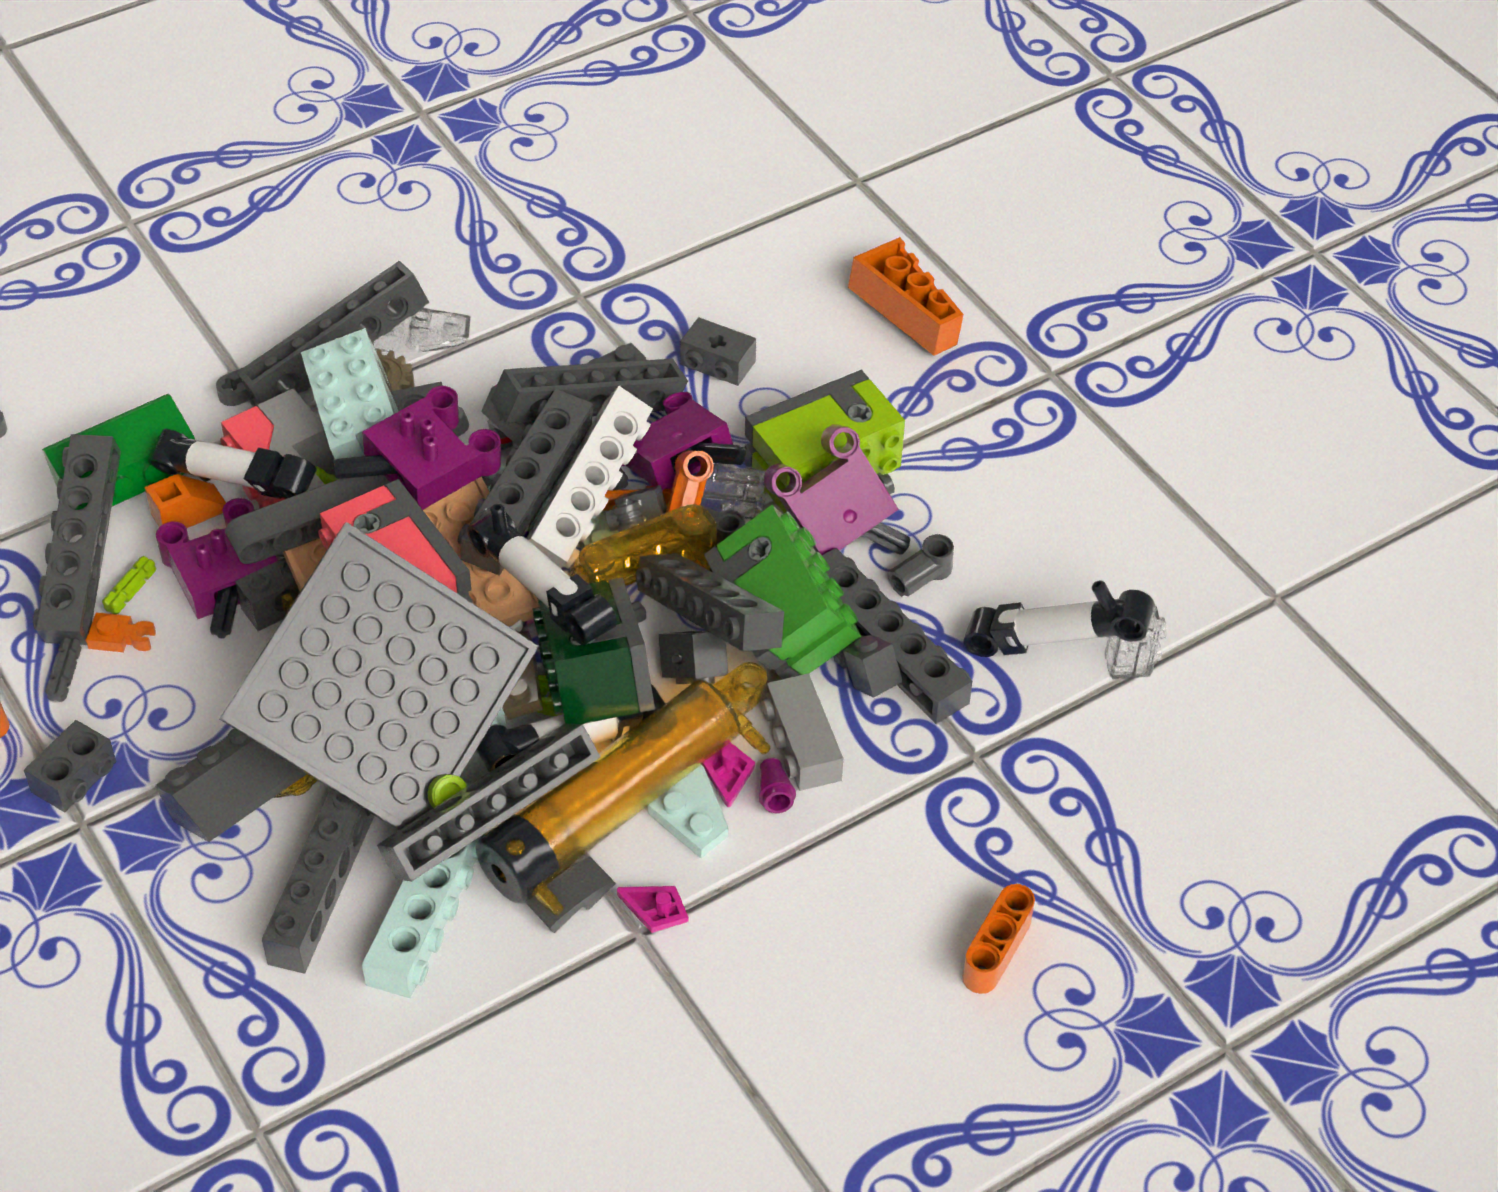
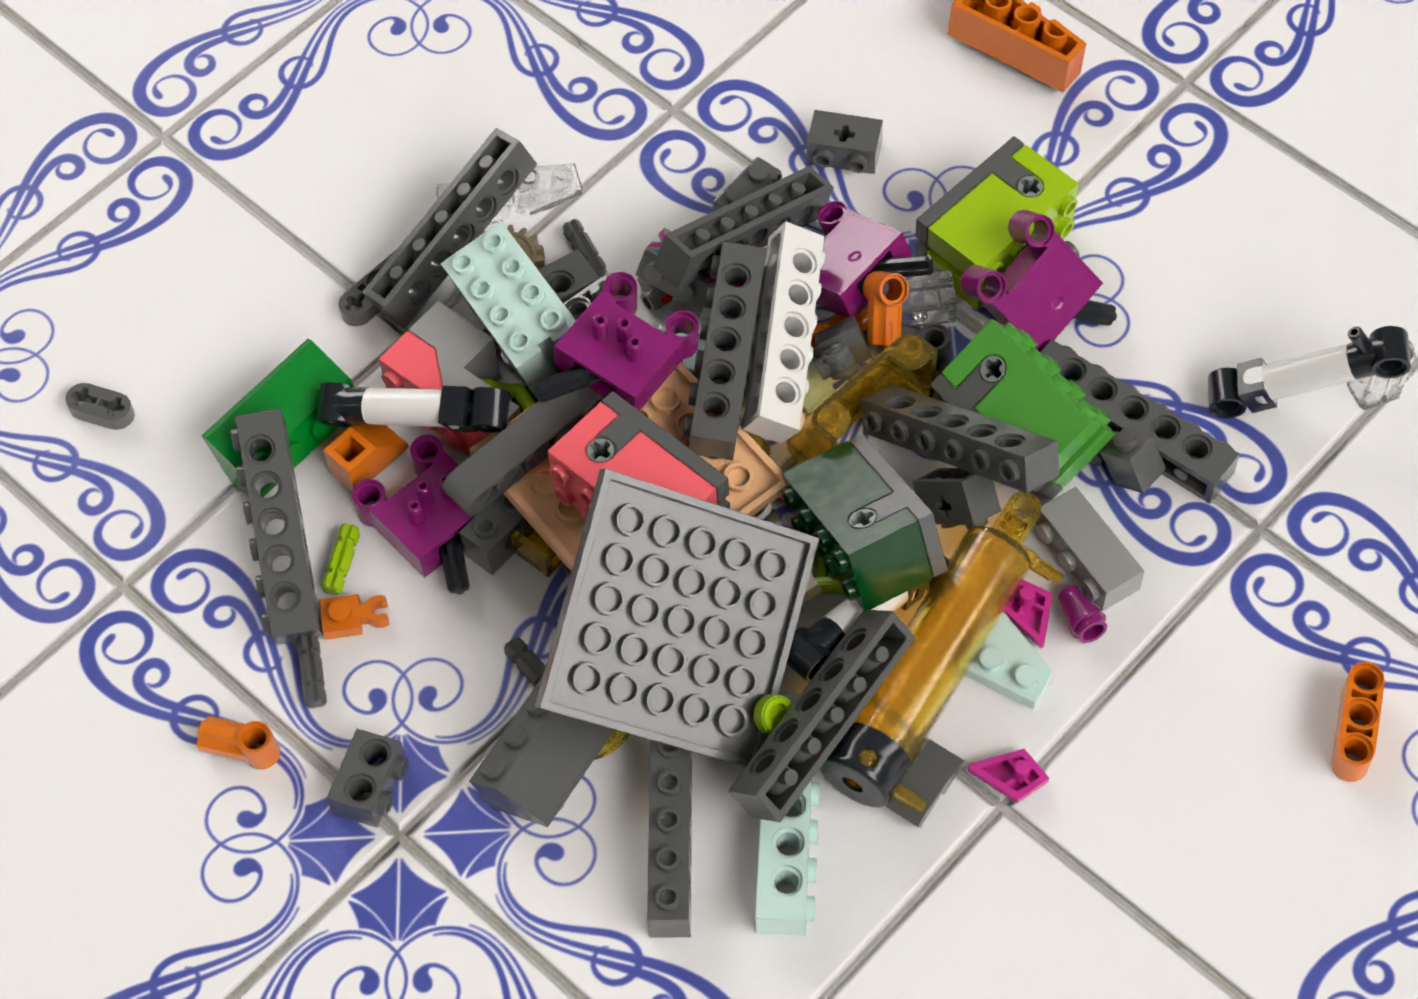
camera: 10 degrees left, 10 degrees up
(450, 378) = (580, 240): none -> dark grey axle
(567, 597) = (836, 482): black piece -> none
(928, 564) = (1139, 335): dark grey piece -> none

